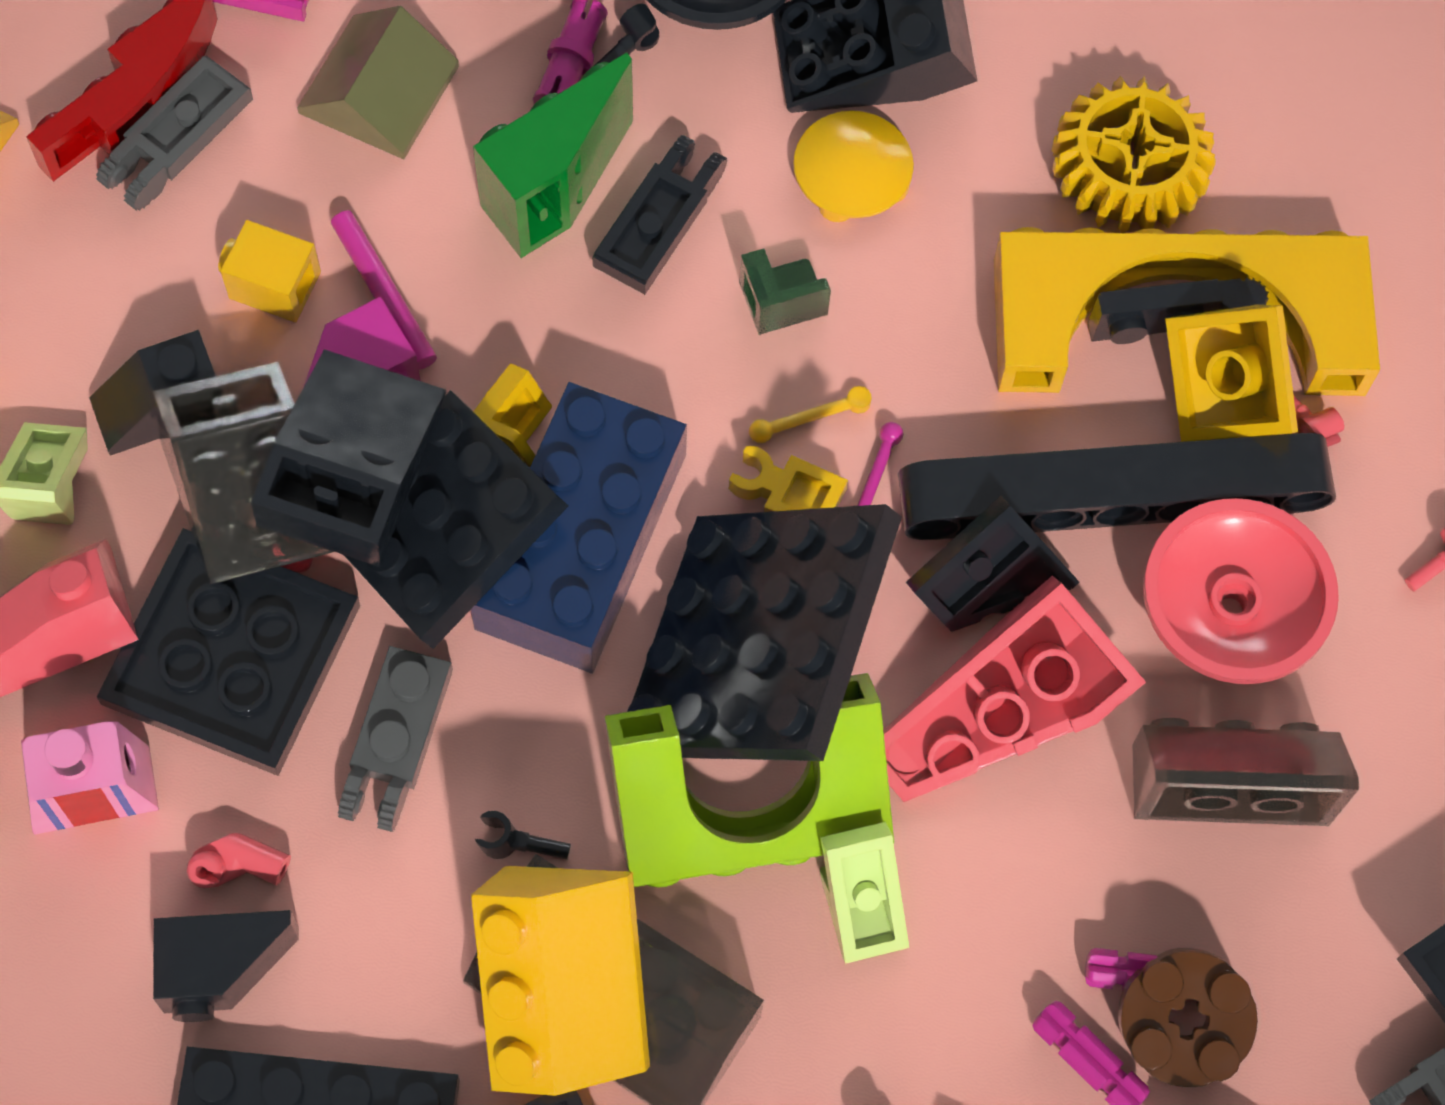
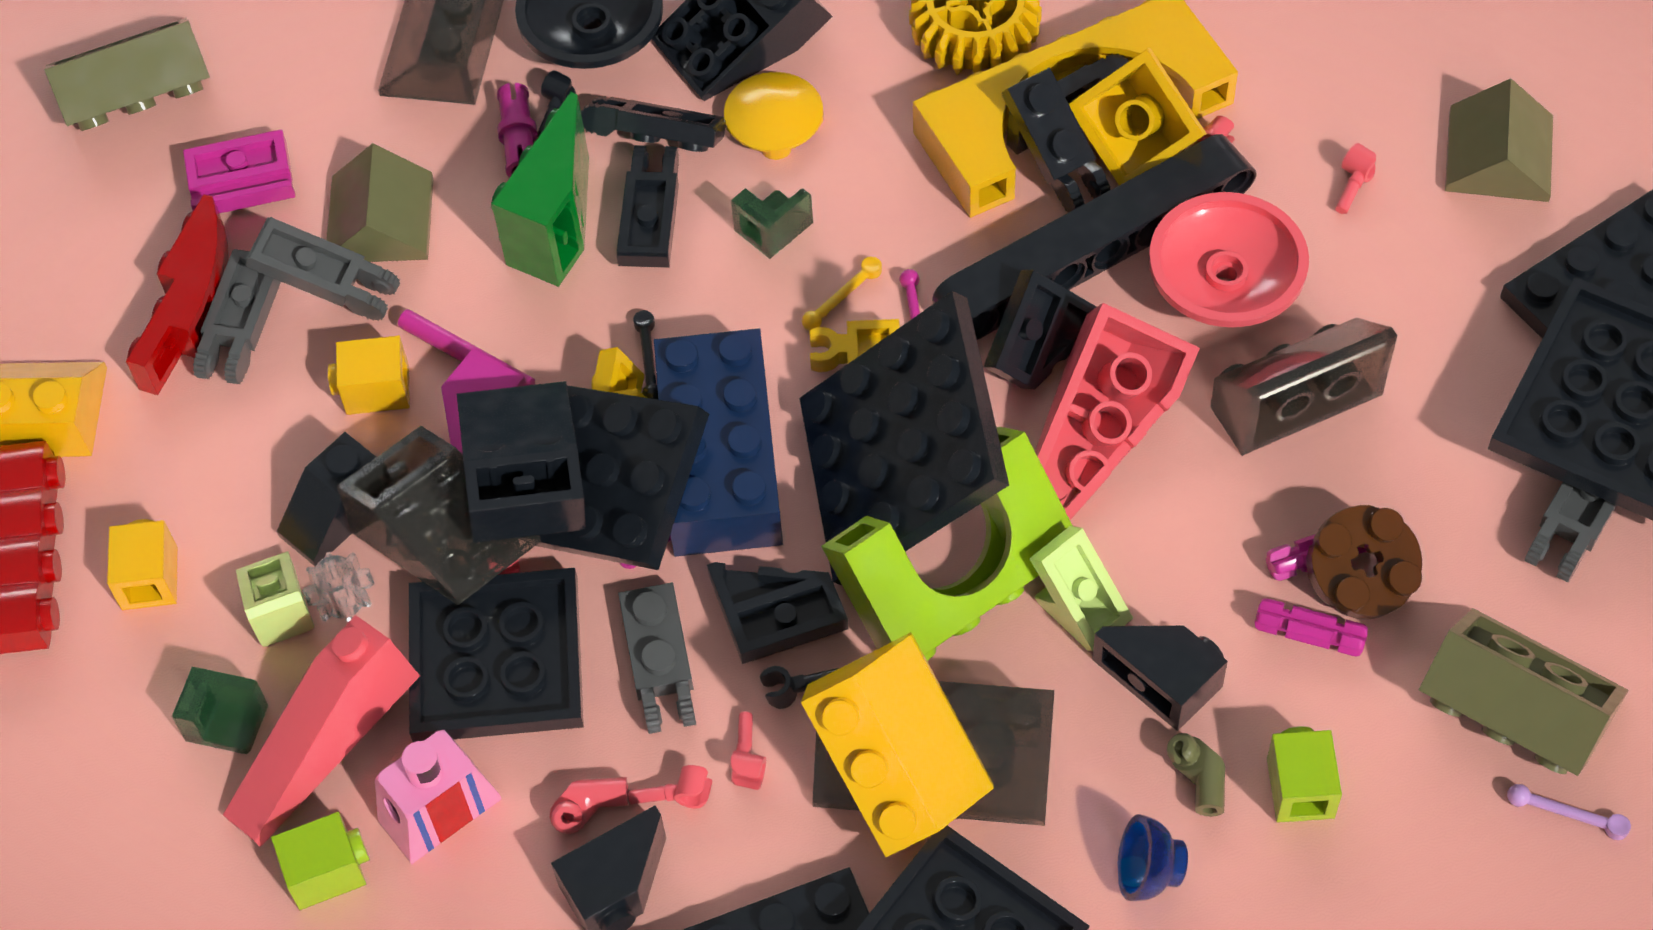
camera: 20 degrees left, 10 degrees down
(102, 484) = (338, 586): none -> clear gear
(277, 121) = (321, 268): none -> dark grey hinge
(348, 902) = (690, 791): none -> coral hand
(414, 907) = (747, 768): none -> coral hand
(538, 746) = (776, 608): none -> black wing
(585, 346) = (645, 323): none -> black hinge
(716, 117) = (652, 121): none -> black hinge
(905, 1026) = (1162, 667): none -> black slope
(1132, 350) = (1055, 138): none -> black hinge

